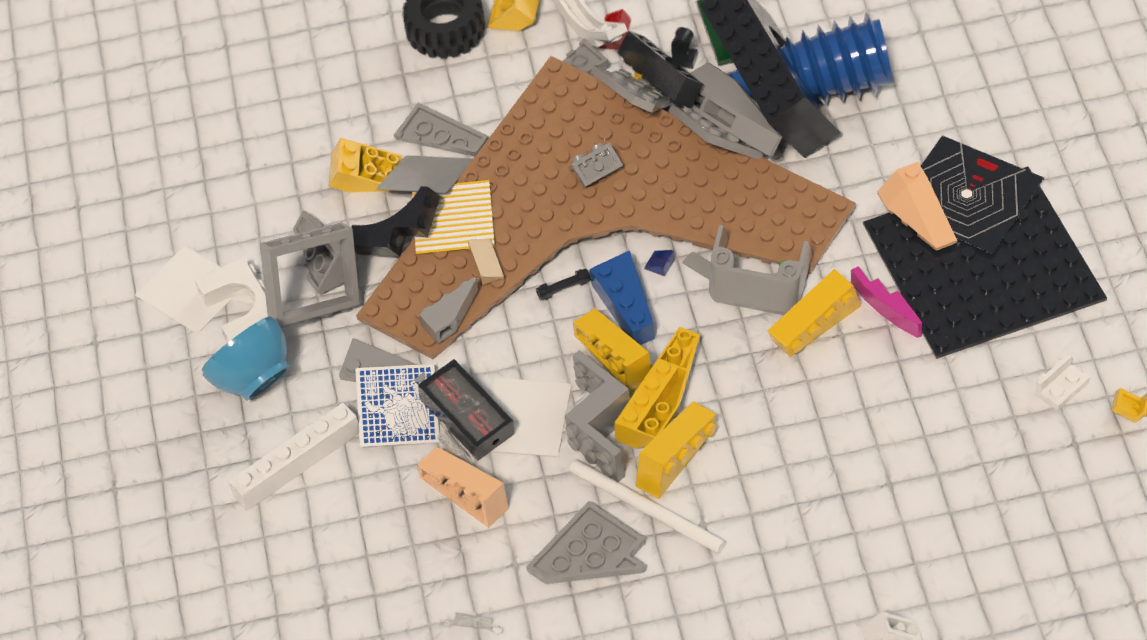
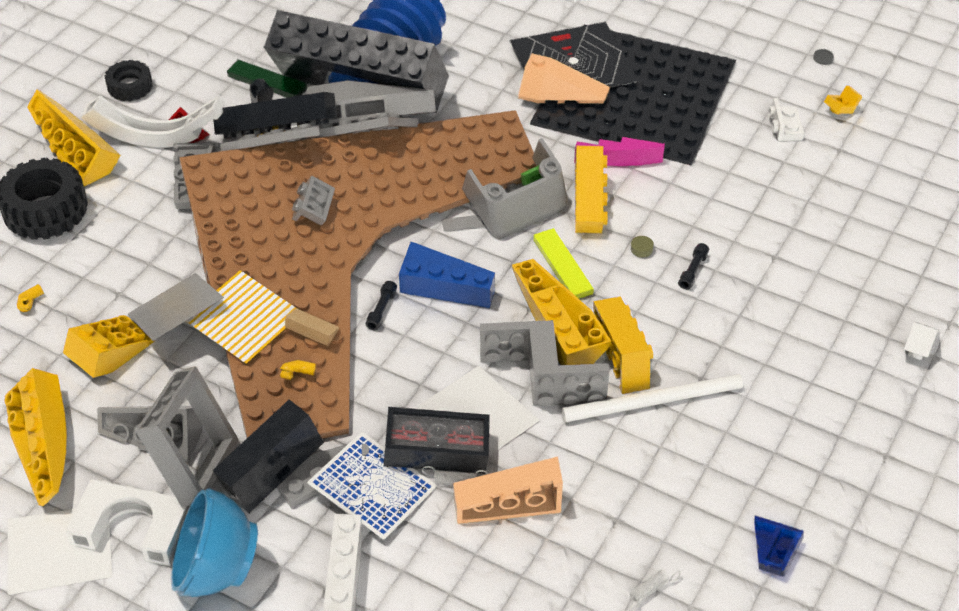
camera: 55 degrees left, 5 degrees down
(258, 198) = (39, 430): none -> yellow wedge
(349, 330) = (268, 456): none -> black brick
(357, 92) = (26, 298): none -> yellow arm
(389, 235) = (219, 338): black arch -> none
(439, 131) = (133, 277): light grey wing -> none
(440, 281) = (297, 366): none -> yellow arm
(446, 315) = (333, 387): light grey slope -> none
(589, 548) = (658, 460): light grey wing -> none
(613, 348) = (465, 312): yellow wedge -> none
(660, 261) = (432, 238): clear blue slope -> none
(725, 357) = (563, 263): none -> neon yellow tile
(799, 391) = (642, 246): none -> olive tile
(833, 433) = (688, 277): none -> black bar

